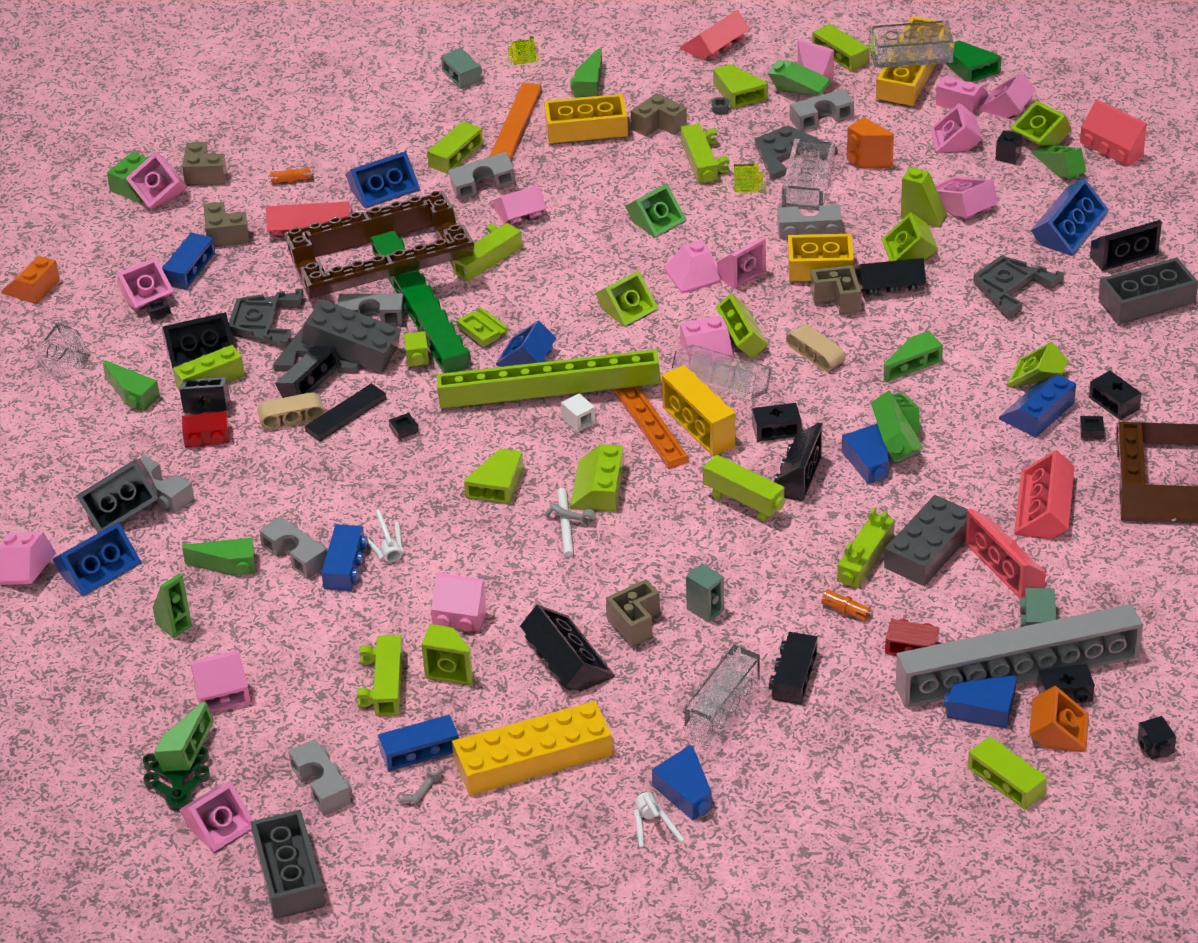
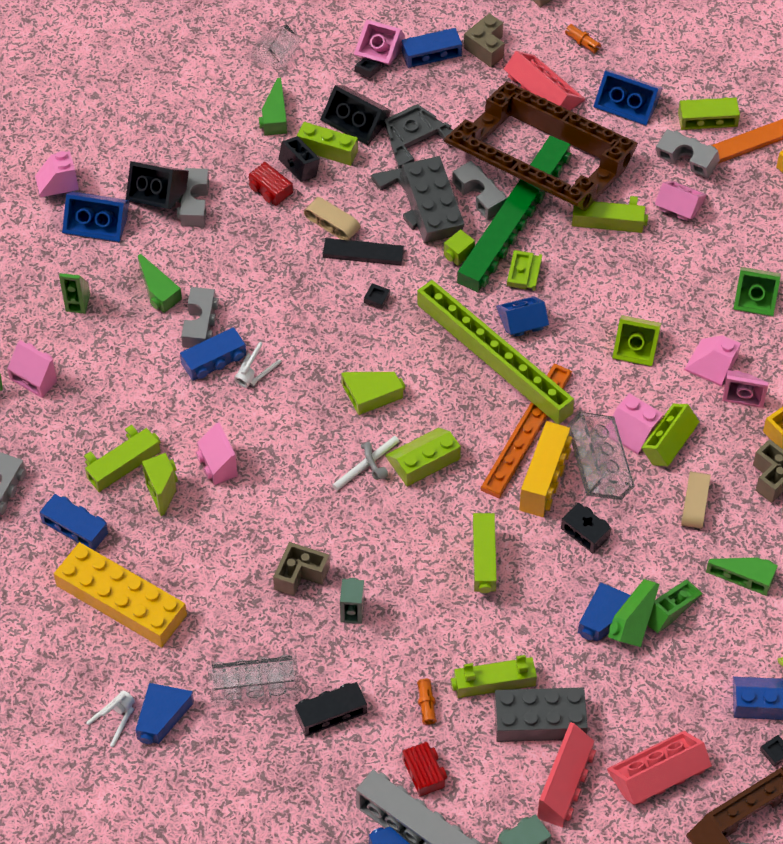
camera: 50 degrees right, 15 degrees up
(309, 372) = (376, 202): black brick -> none
(431, 778) = (41, 554): light grey piece -> none
(565, 649) = (233, 551): black slope -> none
(578, 412) = (483, 393): white brick -> none
(801, 463) = (548, 575): black slope -> none

